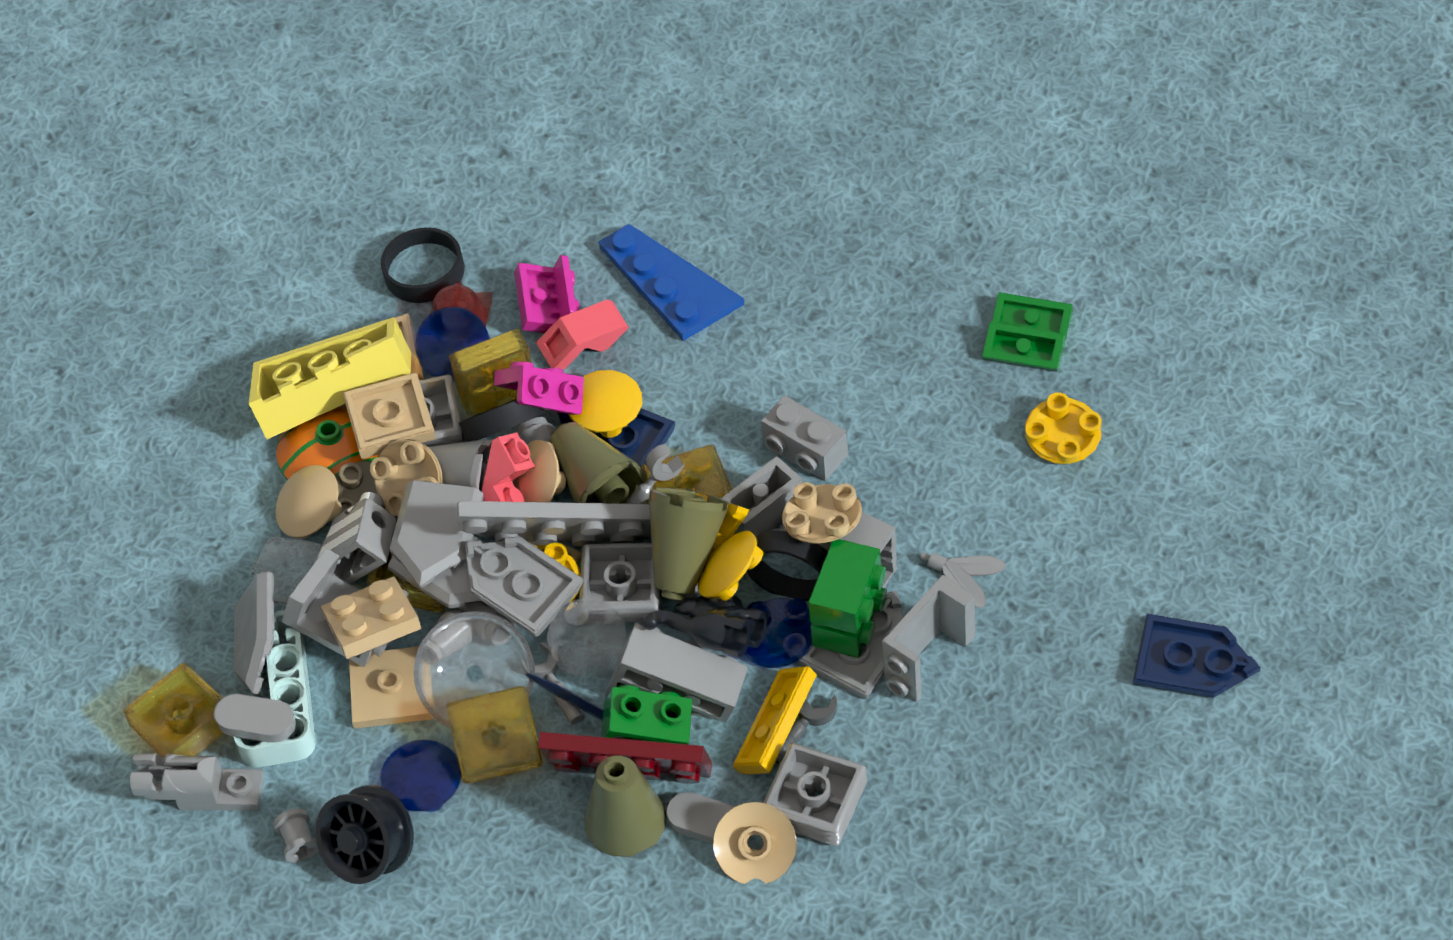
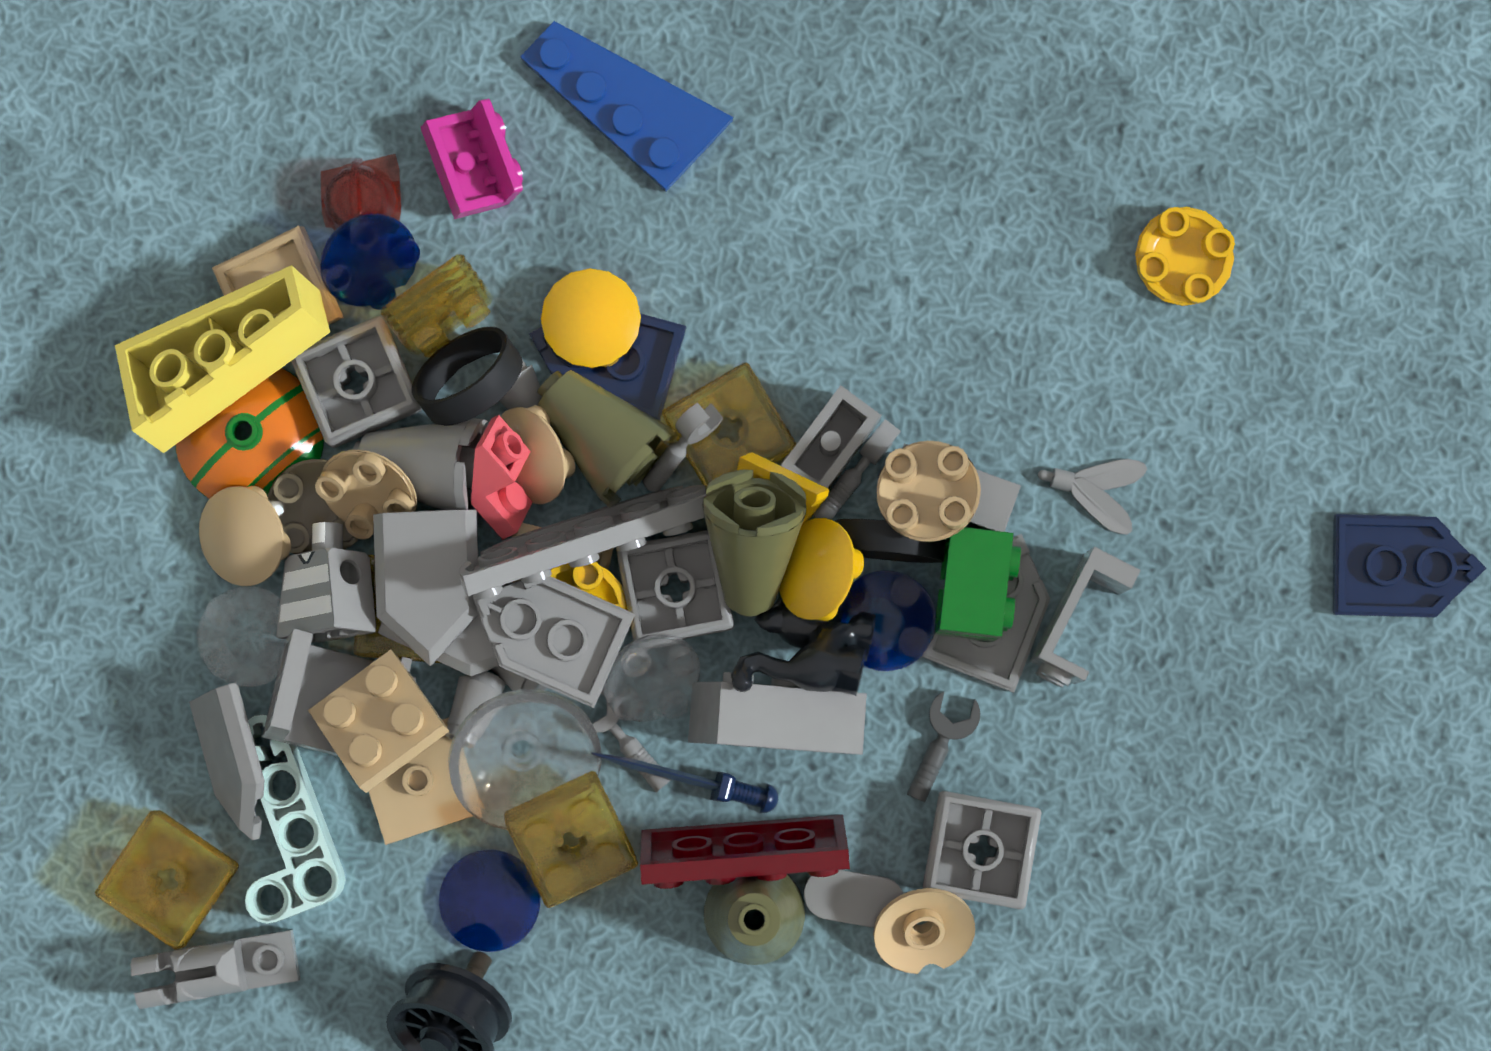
camera: 15 degrees left, 30 degrees up
(255, 718) = (268, 884): light grey tile -> none
(296, 835) = (358, 1016): light grey bush -> none
(388, 414) = (319, 406): tan plate -> none
(424, 292) = (317, 175): black tyre -> none
(543, 387) = (513, 332): dark pink bracket -> none
(590, 327) = (535, 213): coral slope -> none
(646, 716) = (758, 796): green brick -> none
(774, 720) = (910, 750): yellow tile -> none
(804, 438) = (860, 332): light grey brick -> none
(1028, 331) = (1112, 131): green slope -> none

